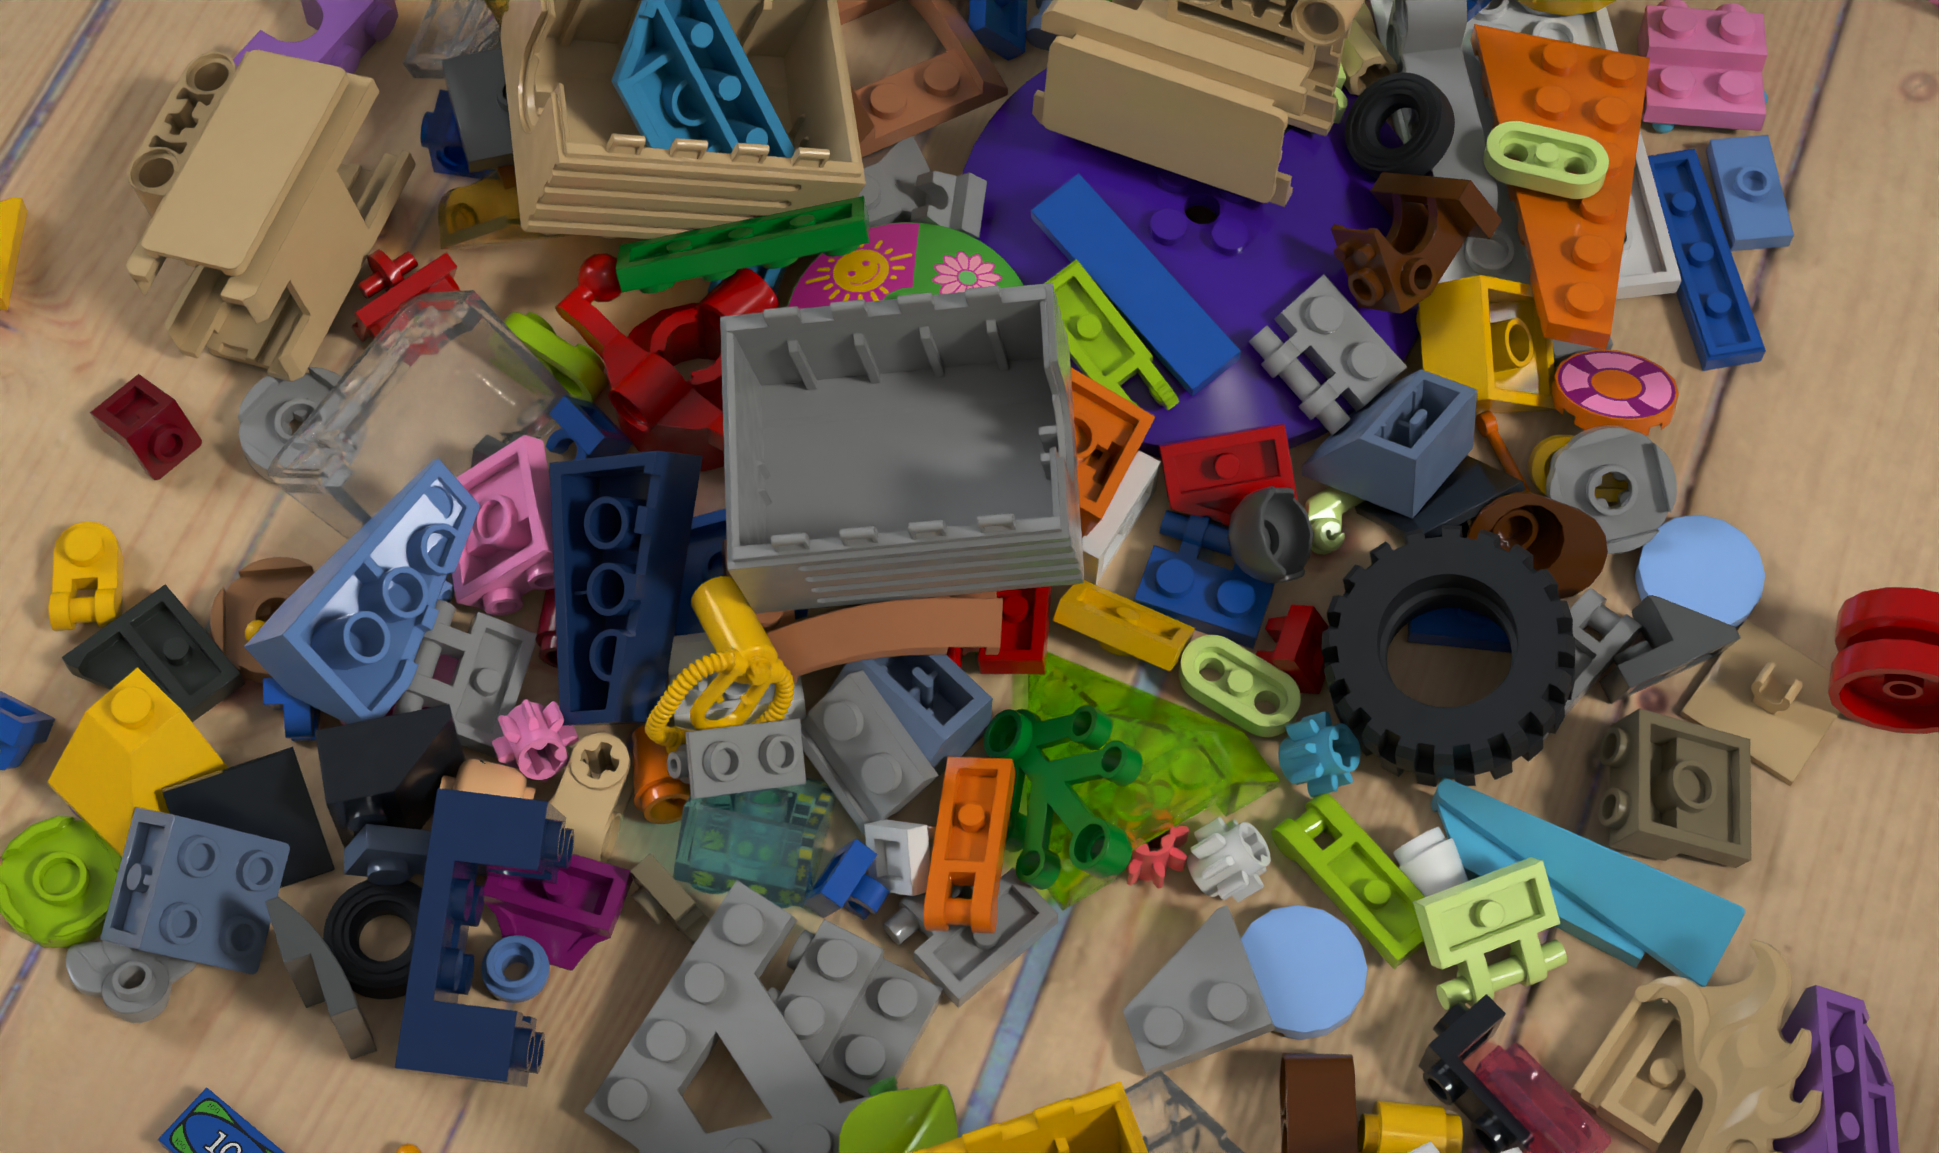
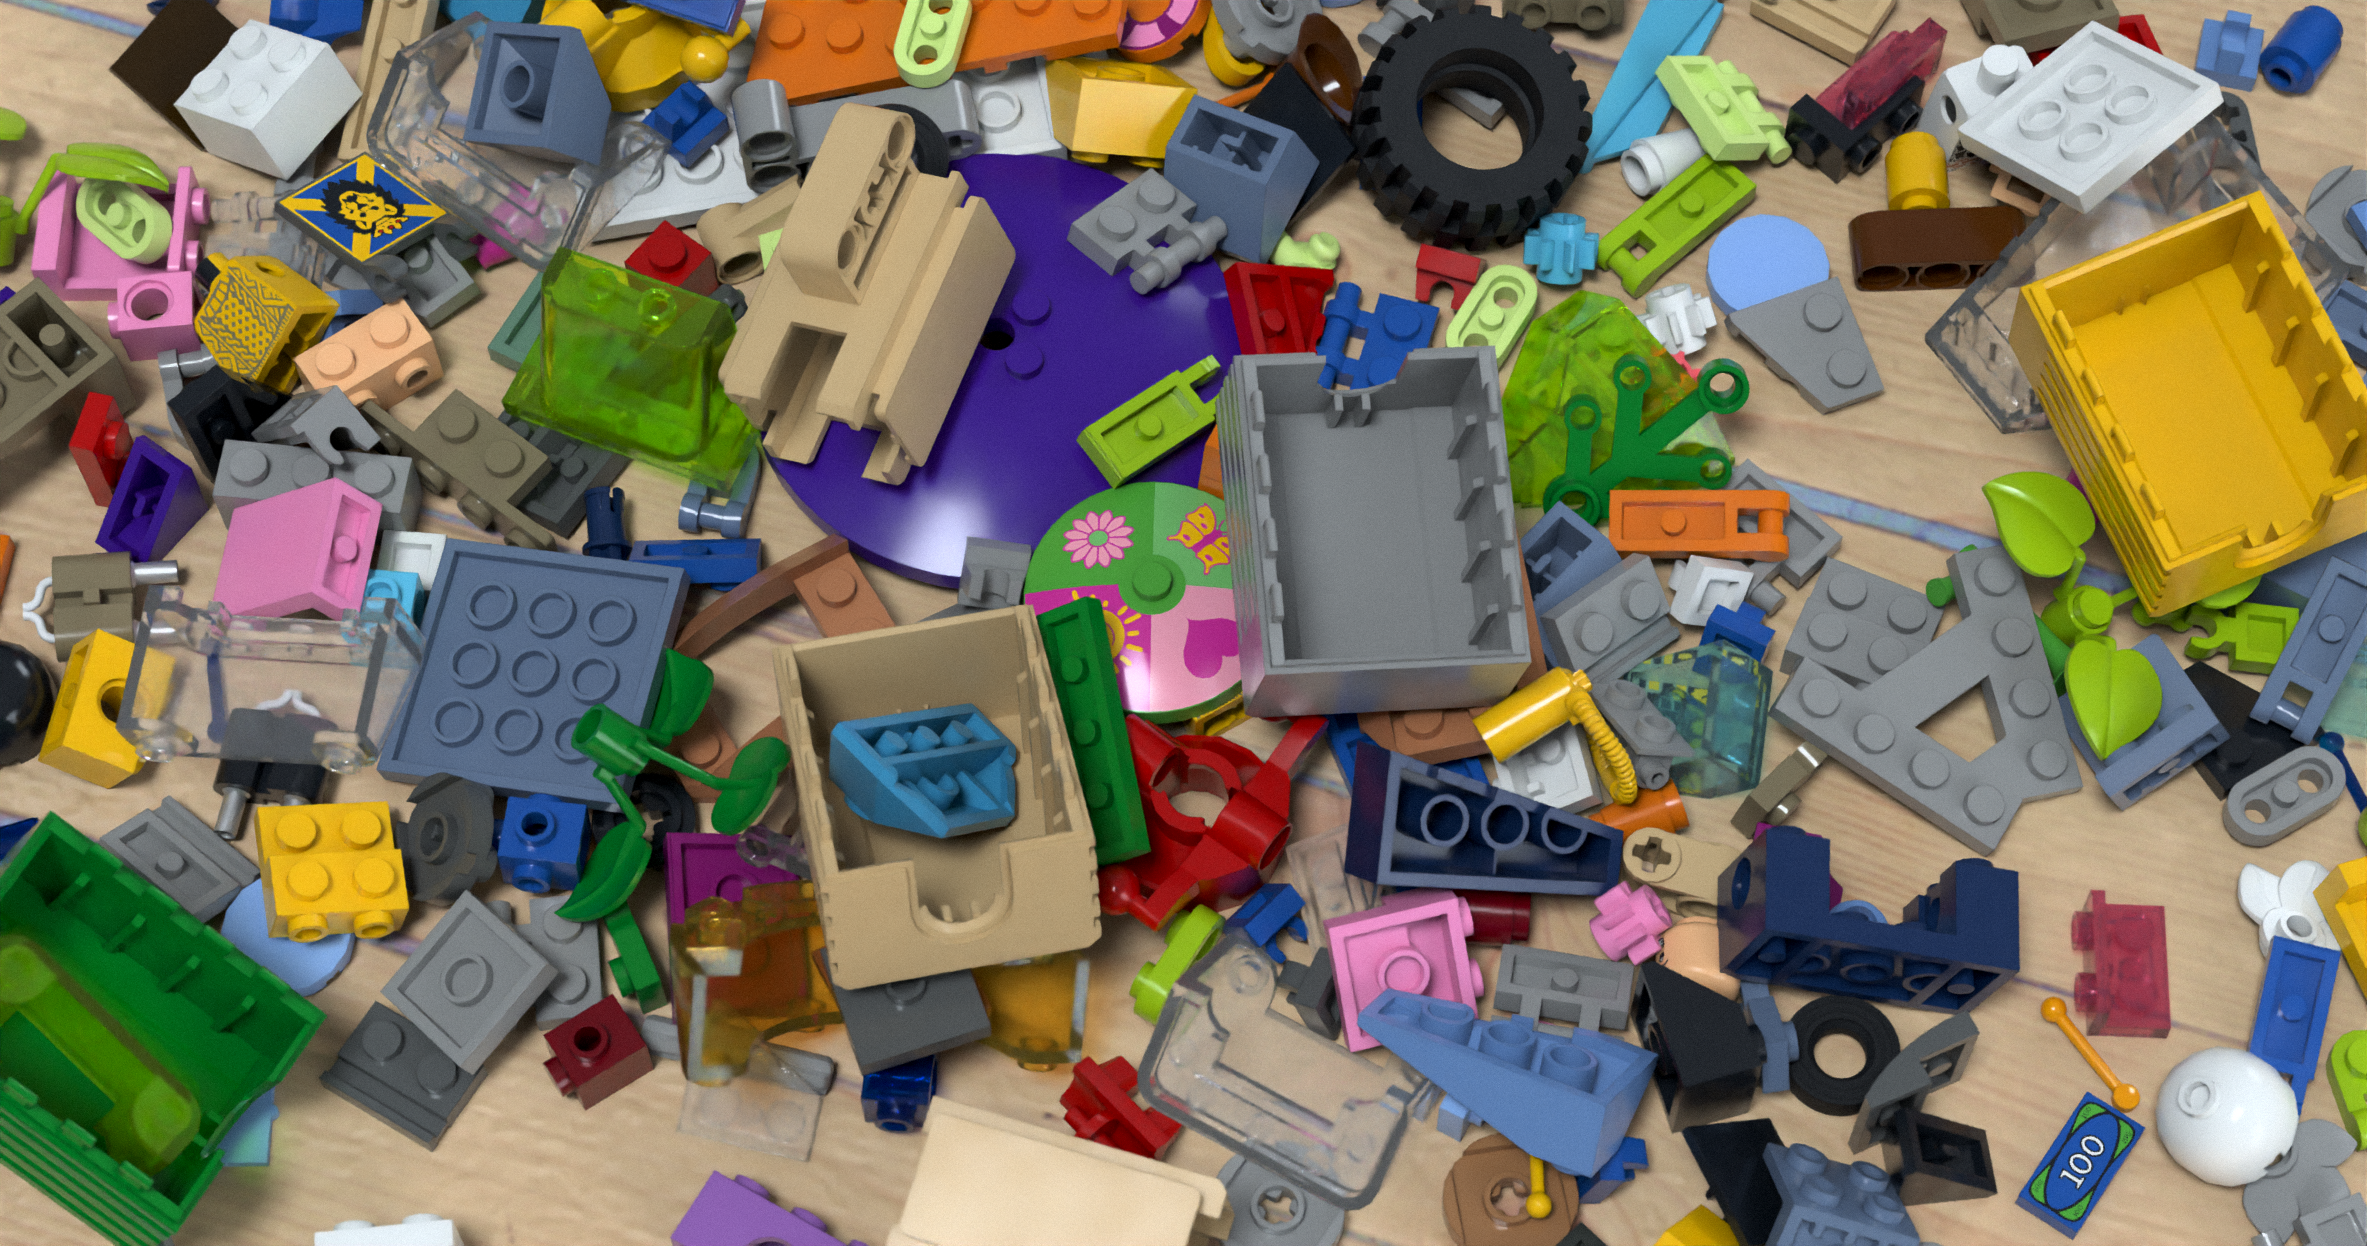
camera: 90 degrees left, 0 degrees up
(252, 1009) = (1936, 1159): none -> black slope
(1136, 284) = (1090, 388): blue tile -> none
(1270, 535) = (1353, 280): dark grey hair -> none
(1421, 243) = (1005, 130): reddish brown tile -> none

